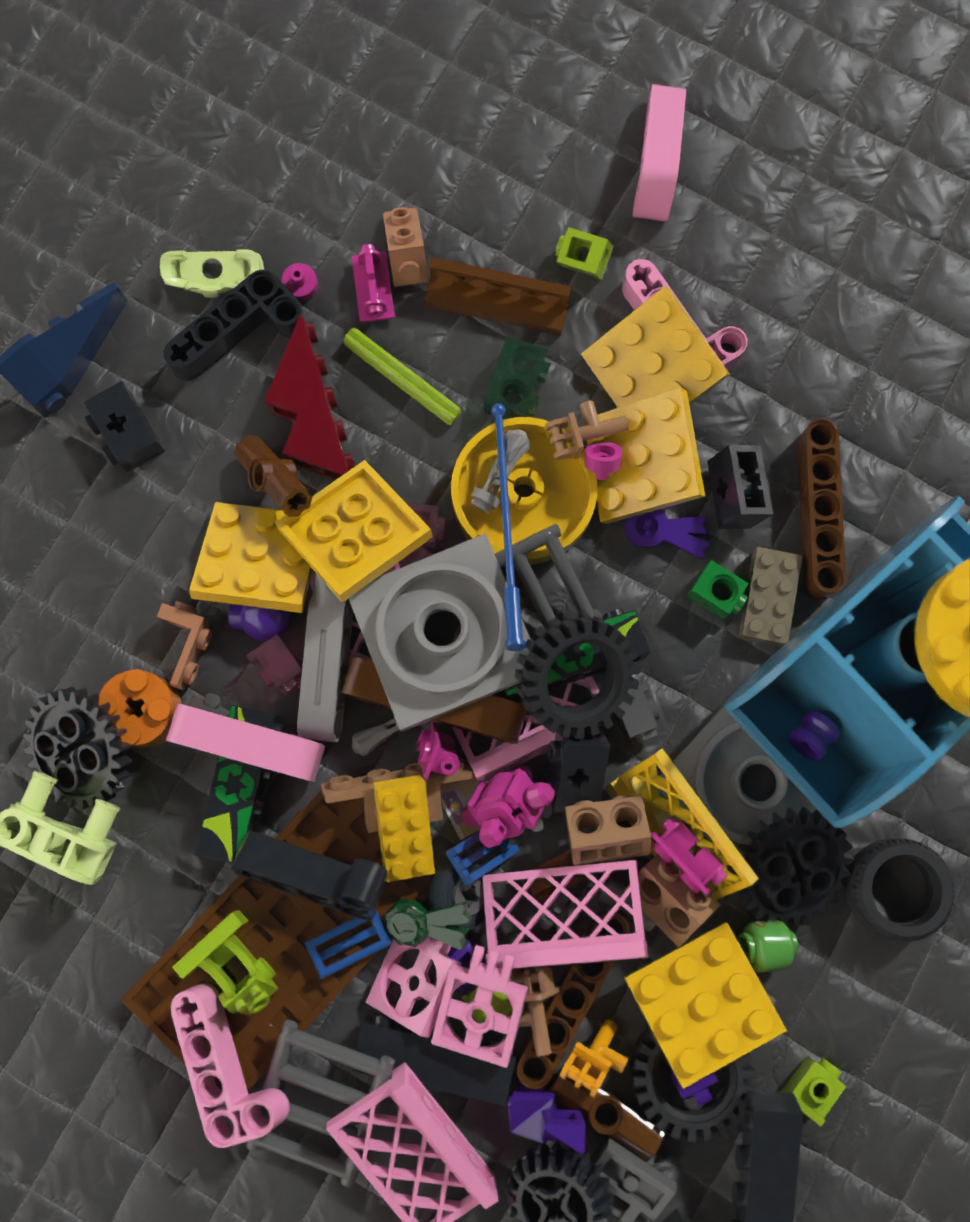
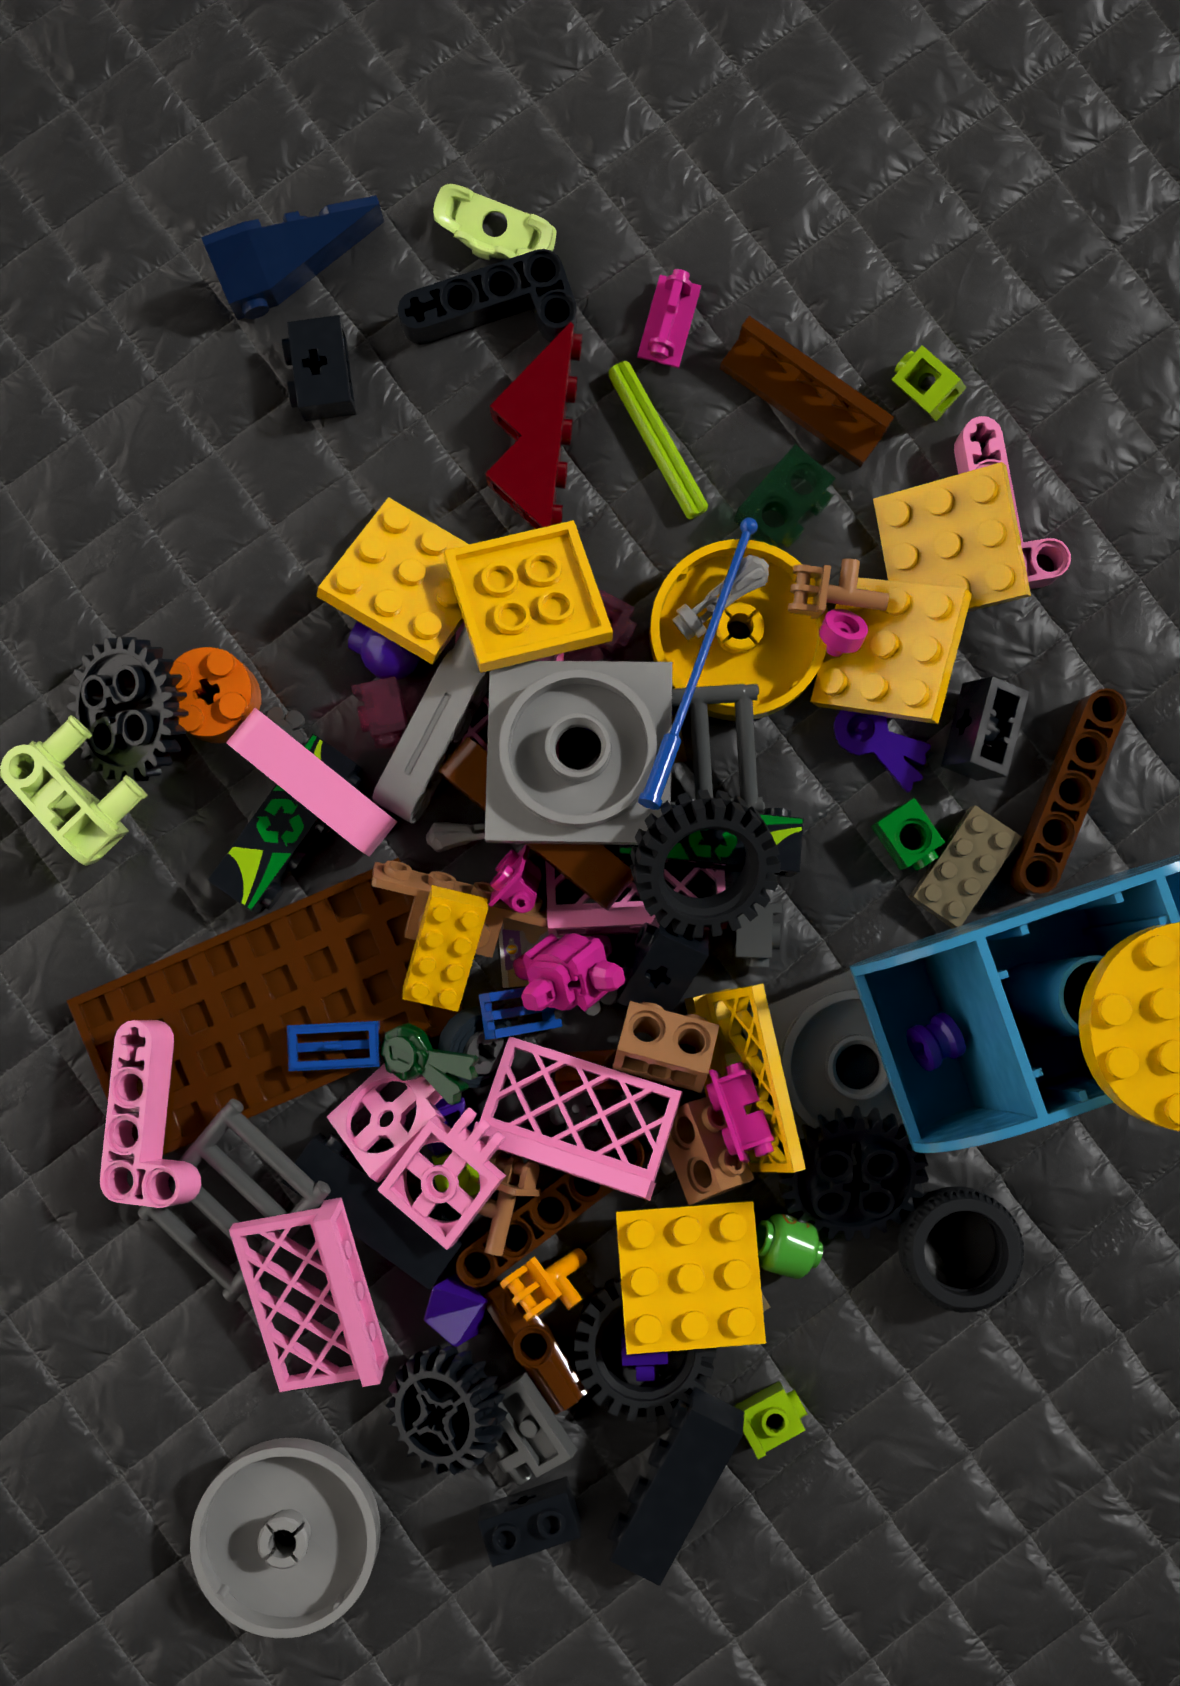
camera: 25 degrees right, 5 degrees up
(198, 639) = (307, 644): nougat bracket -> none
(215, 951) = (190, 992): lime tile -> none
(273, 476) = (463, 495): reddish brown piece -> none
(300, 281) = (588, 281): dark pink tile -> none
(312, 876) = (323, 957): black beam -> none
(405, 246) = (726, 289): nougat bracket -> none
(564, 1126) = (481, 1338): dark purple slope -> none
(660, 153) = (1070, 298): bright pink beam -> none

